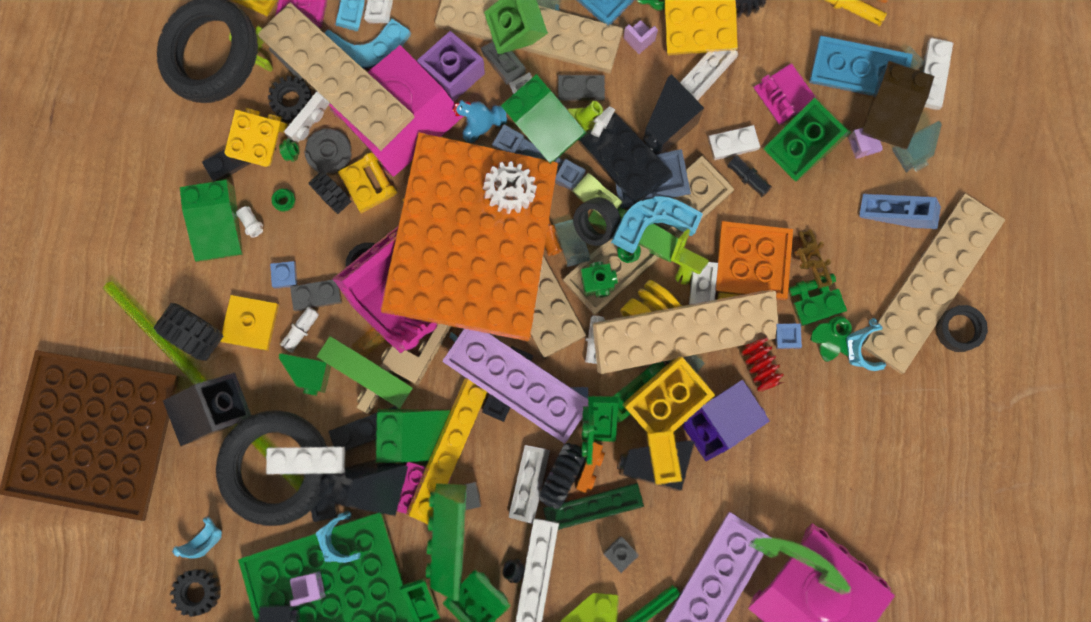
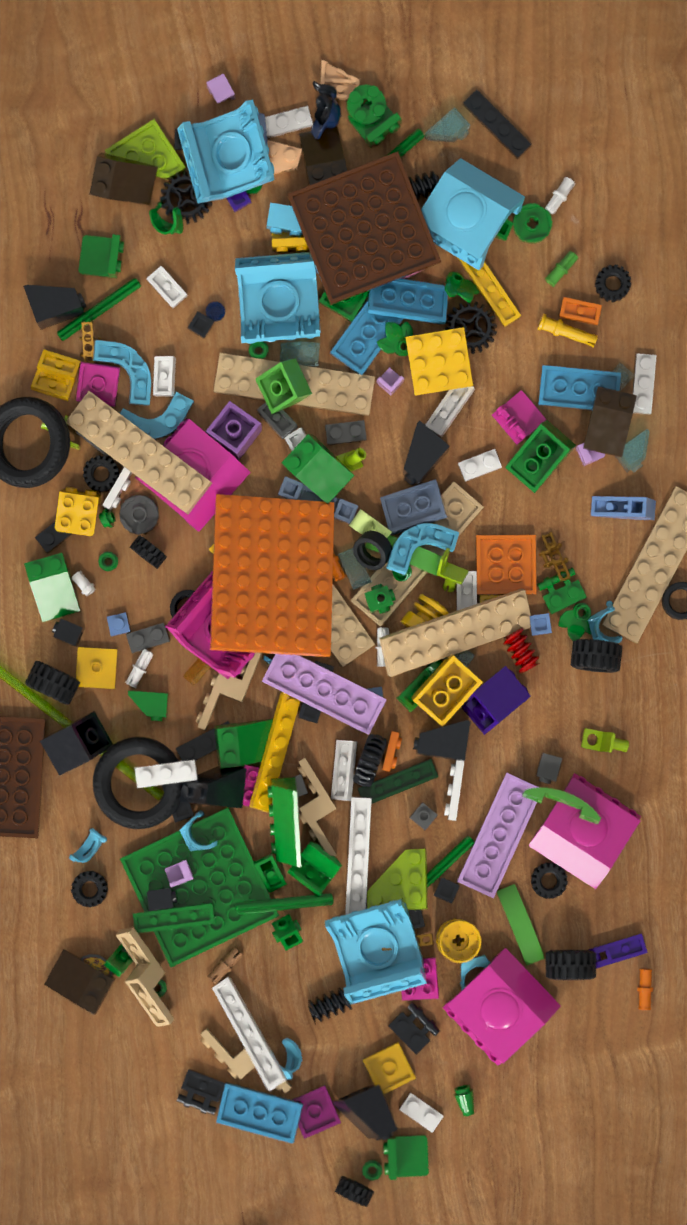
camera: 10 degrees left, 5 degrees up
(221, 276) = (68, 632): none -> black brick
(360, 186) = (171, 542): yellow plate -> none
(364, 372) = (199, 697): bright green slope -> none
(478, 118) = (263, 472): dark azure animal -> none
(489, 527) = (316, 808): none -> tan bracket
(512, 196) = (292, 528): white gear -> none
(513, 570) = (340, 840): black plate -> none
(601, 423) = (395, 715): green bracket -> none
(602, 121) = (367, 462): white bar -> none
(626, 159) = (389, 491): black plate -> none
(662, 526) = (454, 790): none -> white plate
(664, 457) = (447, 736): yellow tile -> none
(749, 176) = (495, 493): black pin -> none
(782, 513) = (548, 768): none -> dark grey brick
(854, 488) = (605, 741): none -> lime bracket
(856, 381) = (596, 655): none -> black tyre

